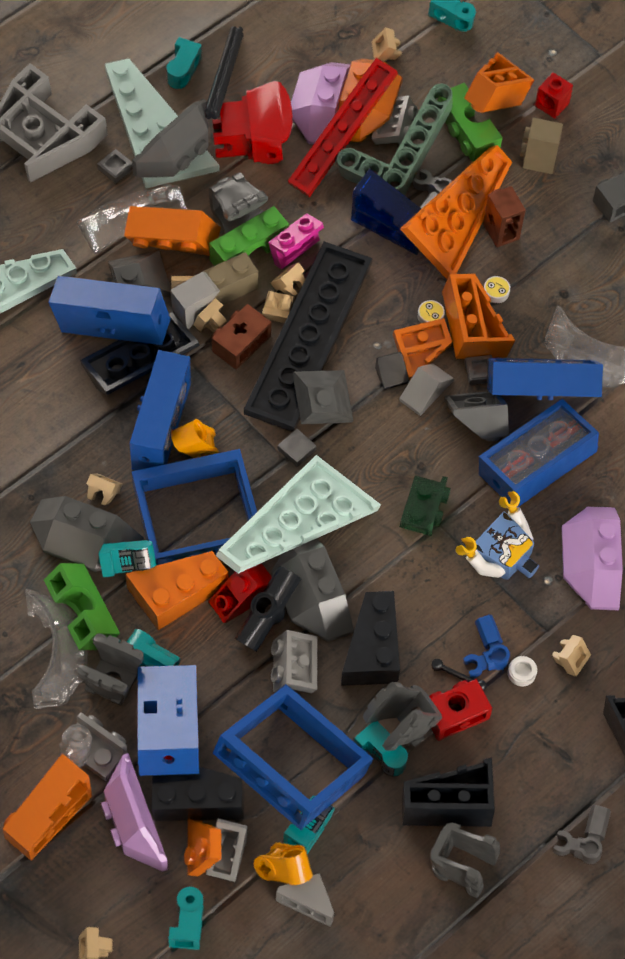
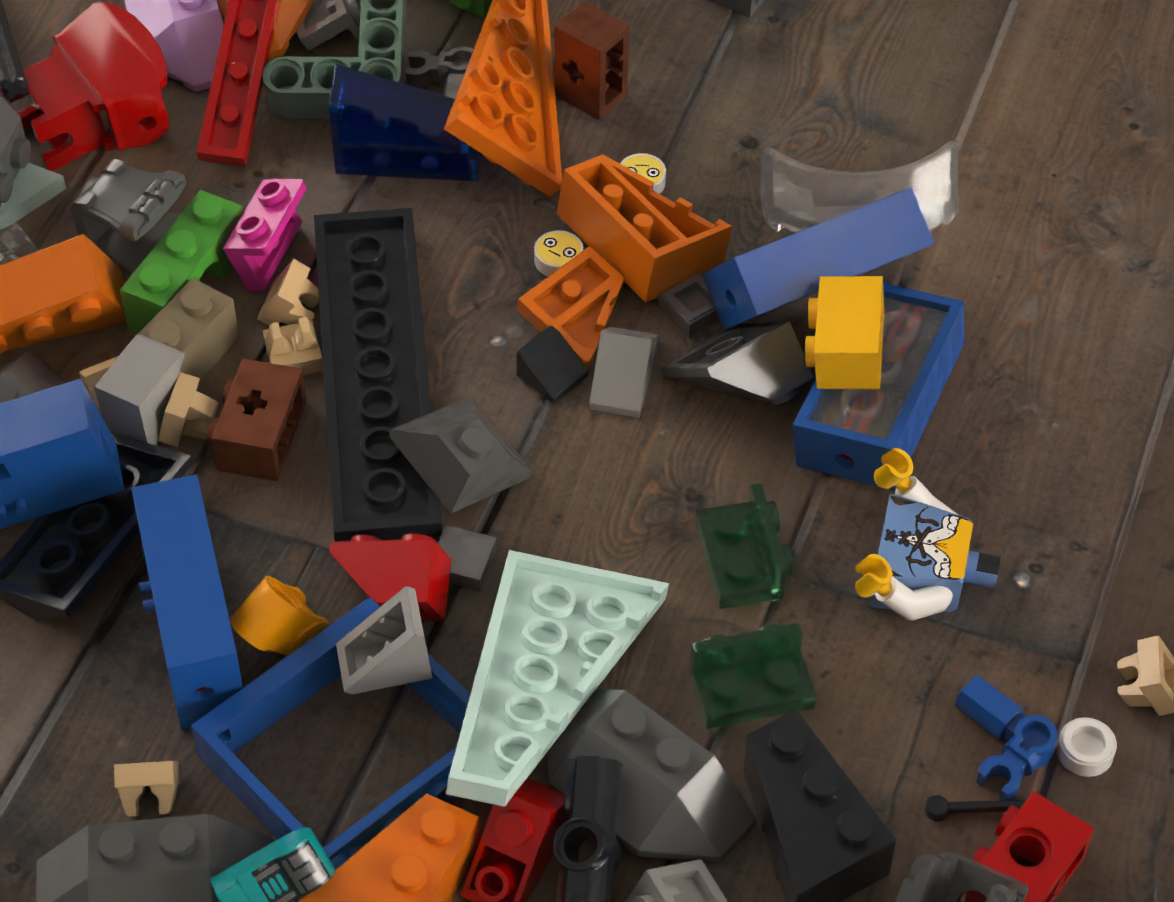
camera: 25 degrees left, 10 degrees down
(231, 477) = (385, 647): none -> light grey slope
(260, 445) = (390, 565): none -> red slope
(391, 565) = (751, 675): none -> clear green bracket
(529, 423) = (847, 332): none -> yellow brick
(594, 557) = (1080, 503): lavender wedge -> none

